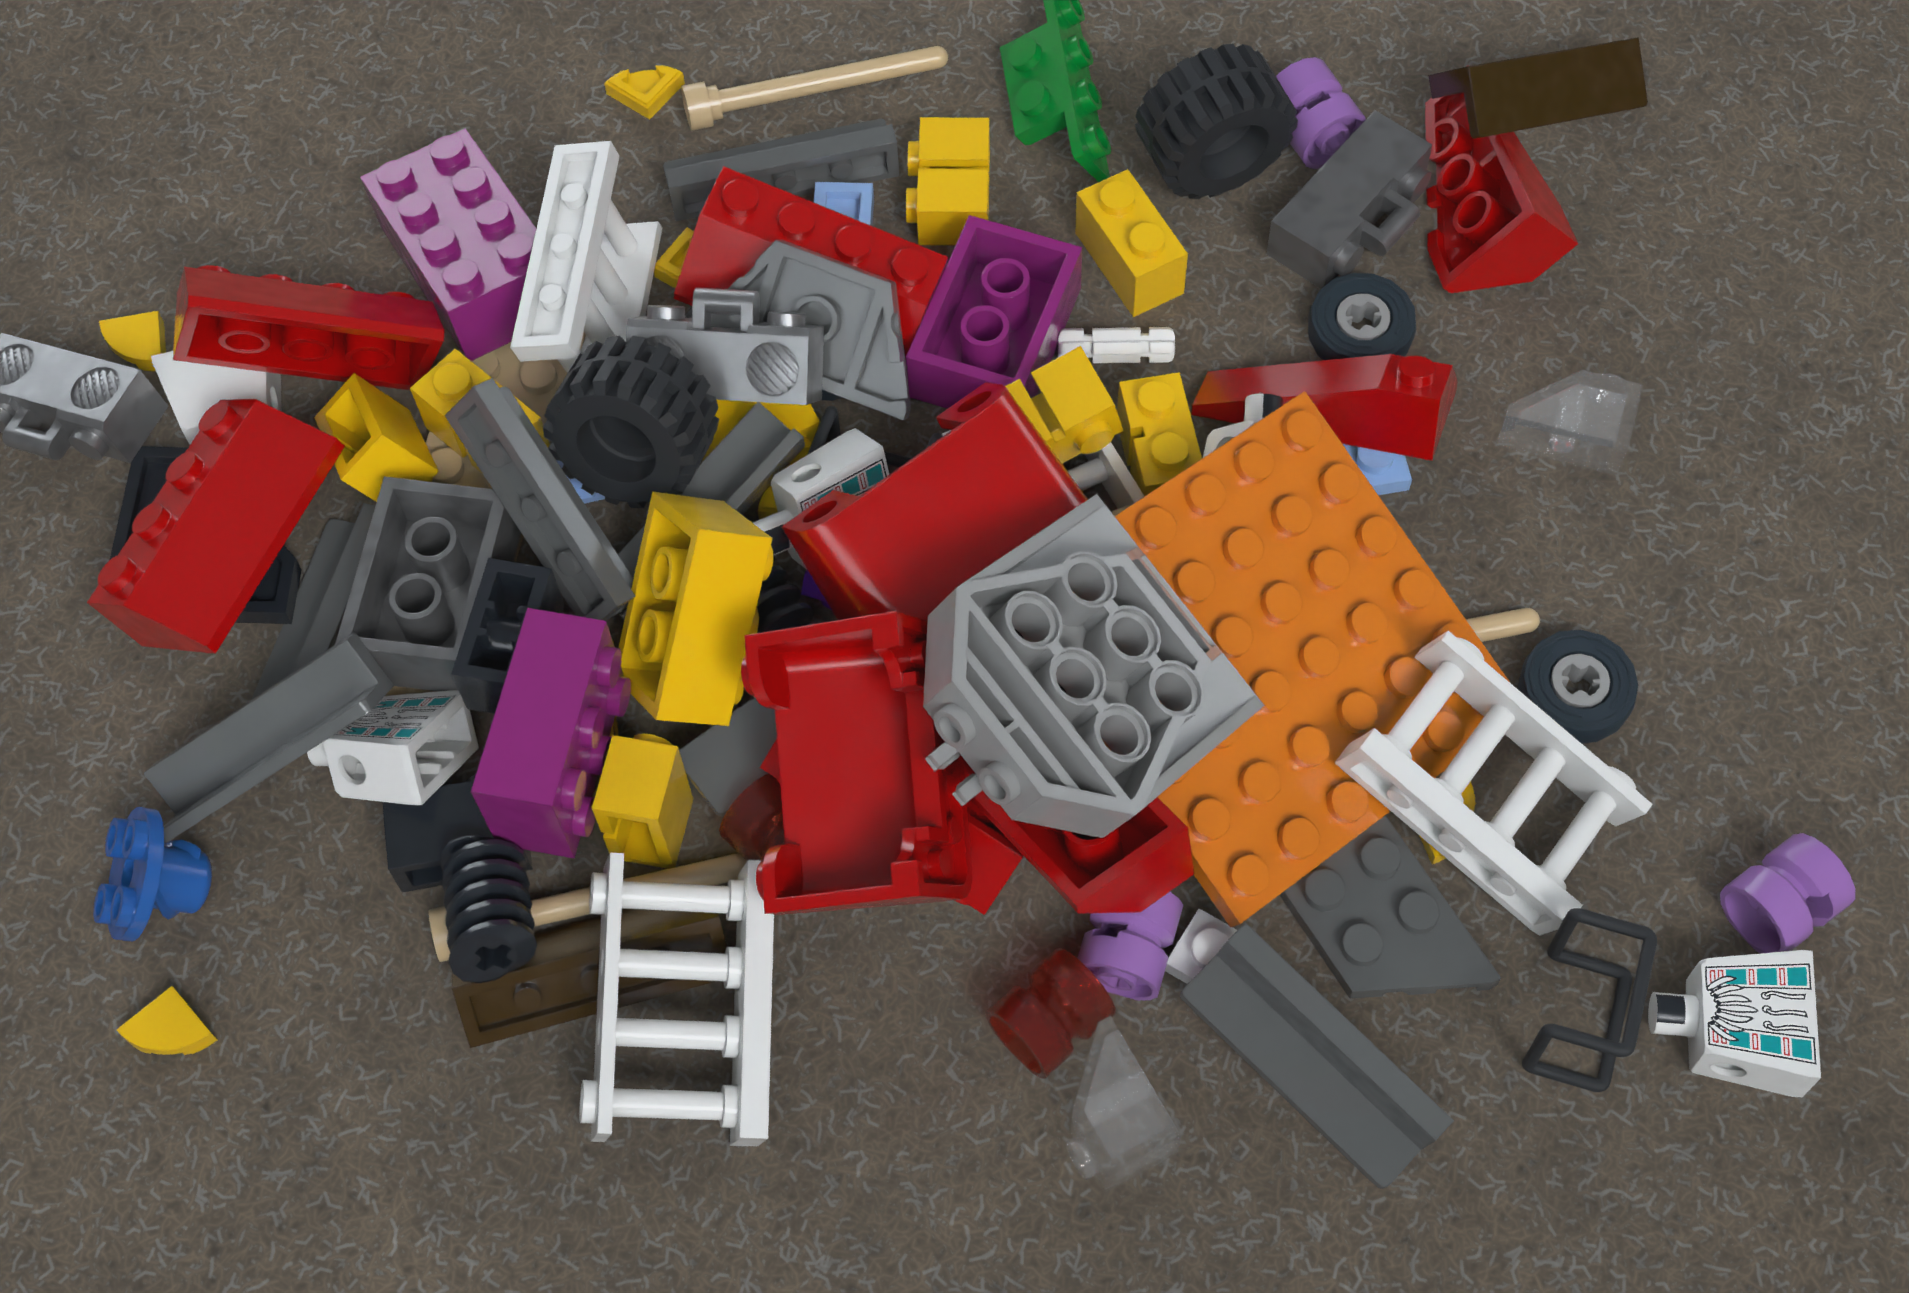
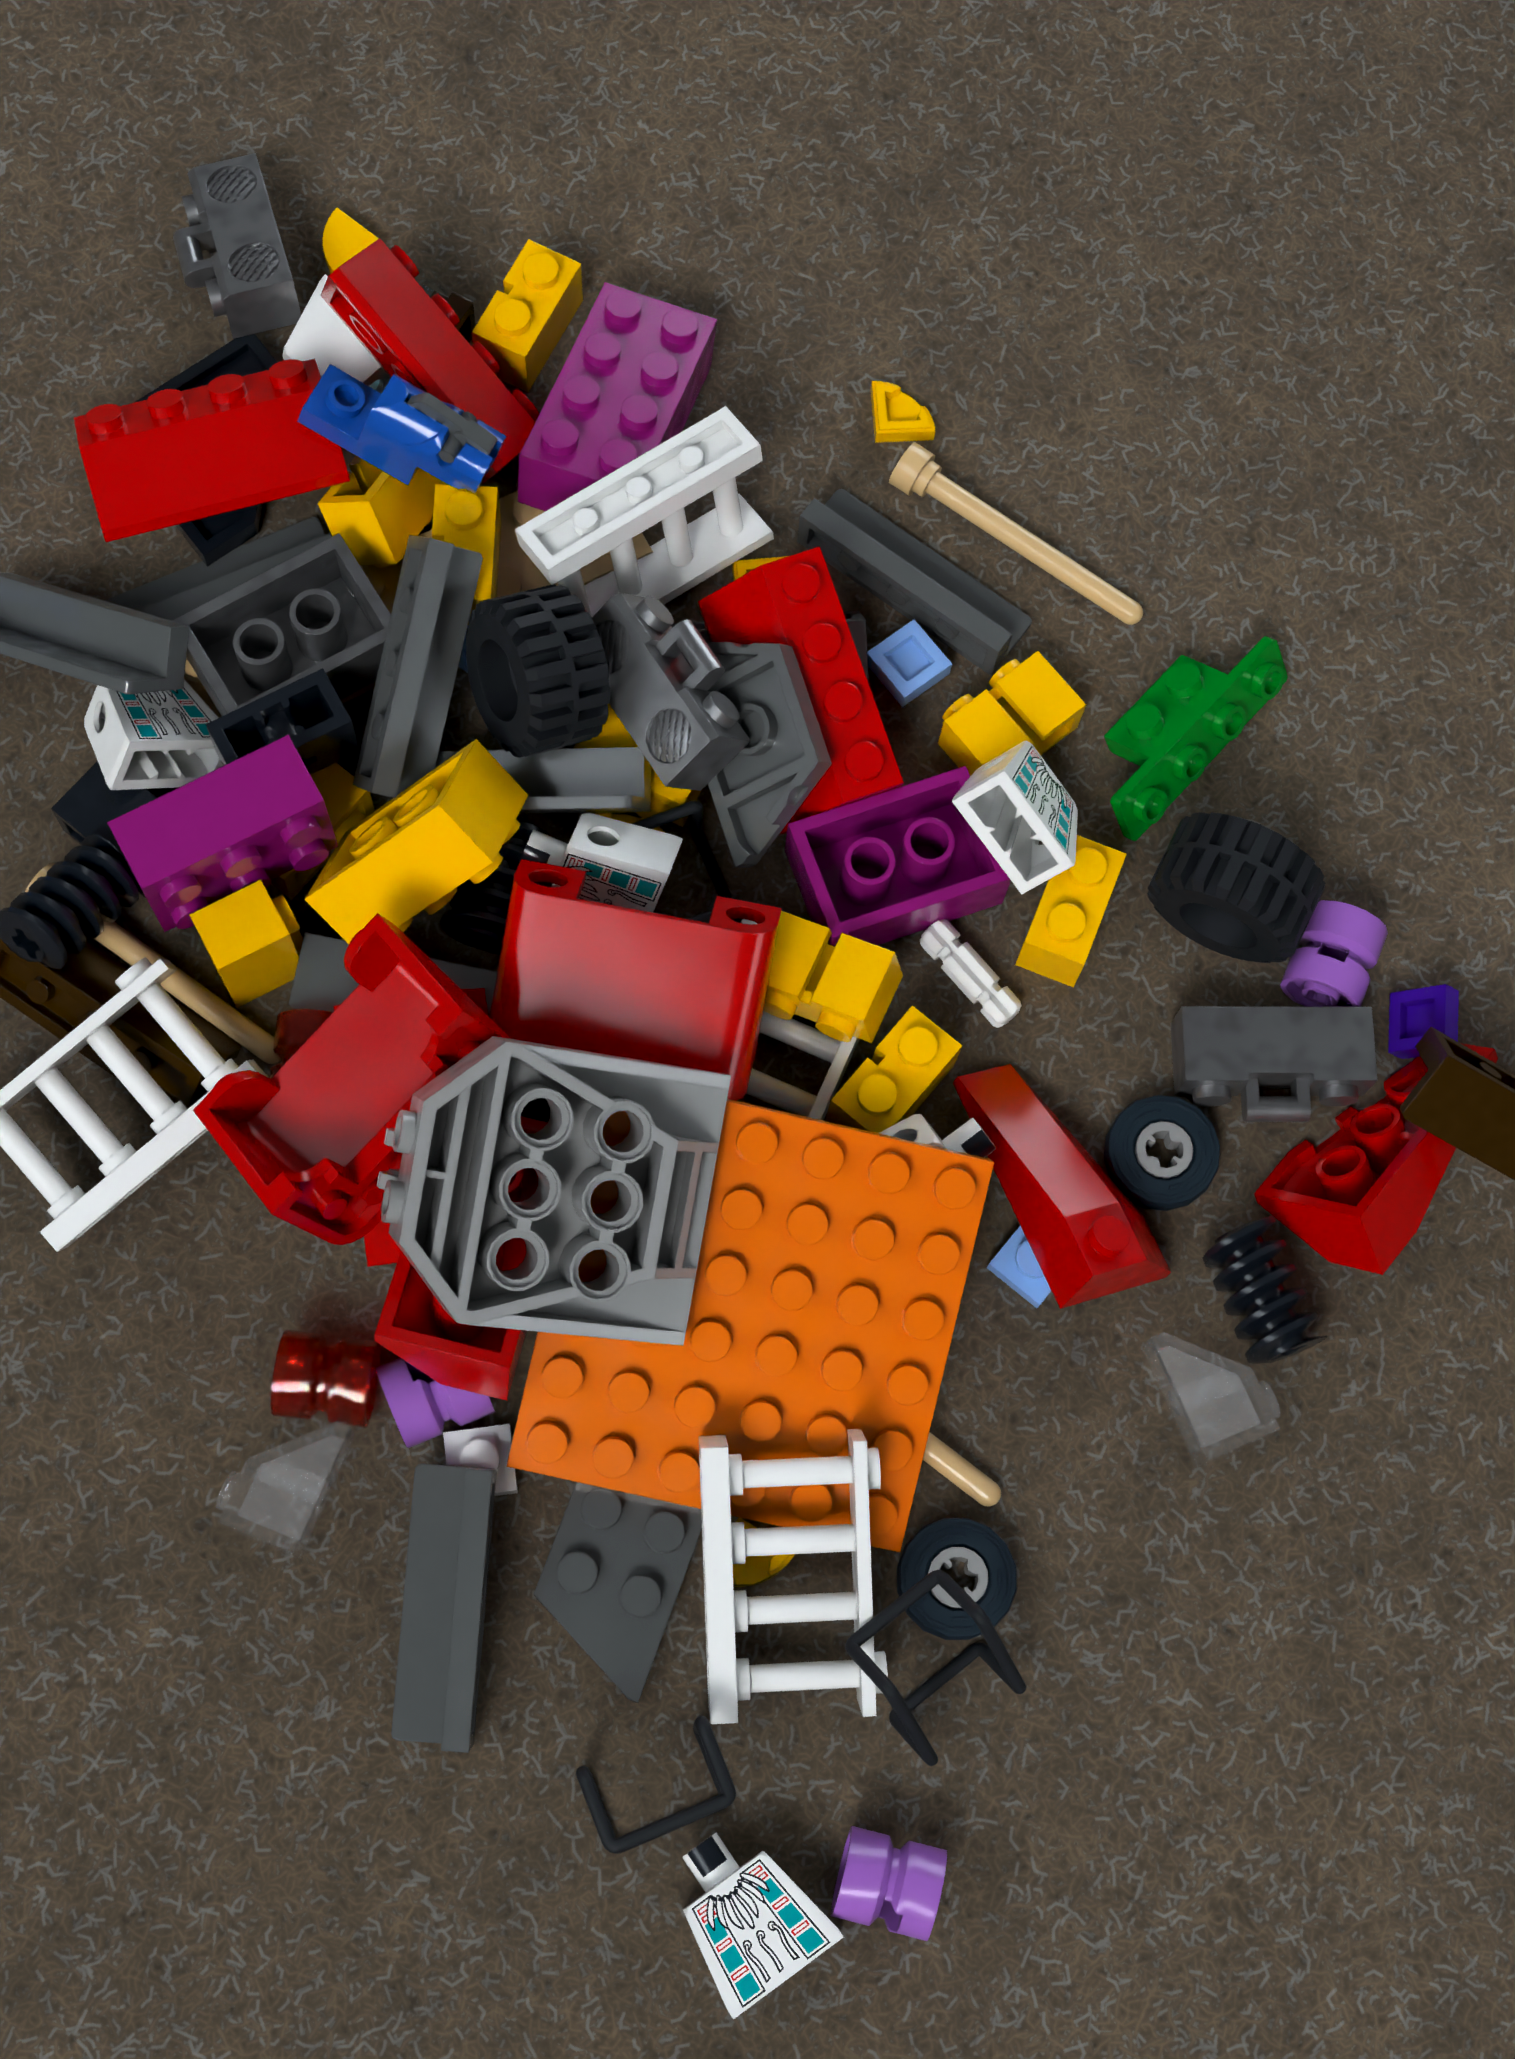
camera: 40 degrees right, 10 degrees up
(321, 238) = (531, 314): none -> yellow piece
(352, 364) = (402, 429): none -> blue plate
(1032, 201) = (1016, 805): none -> white torso
(1405, 96) = (1415, 1012): none -> dark purple plate
(1524, 330) = (1261, 1293): none -> black piece
(1645, 756) = (994, 1655): none -> black piece

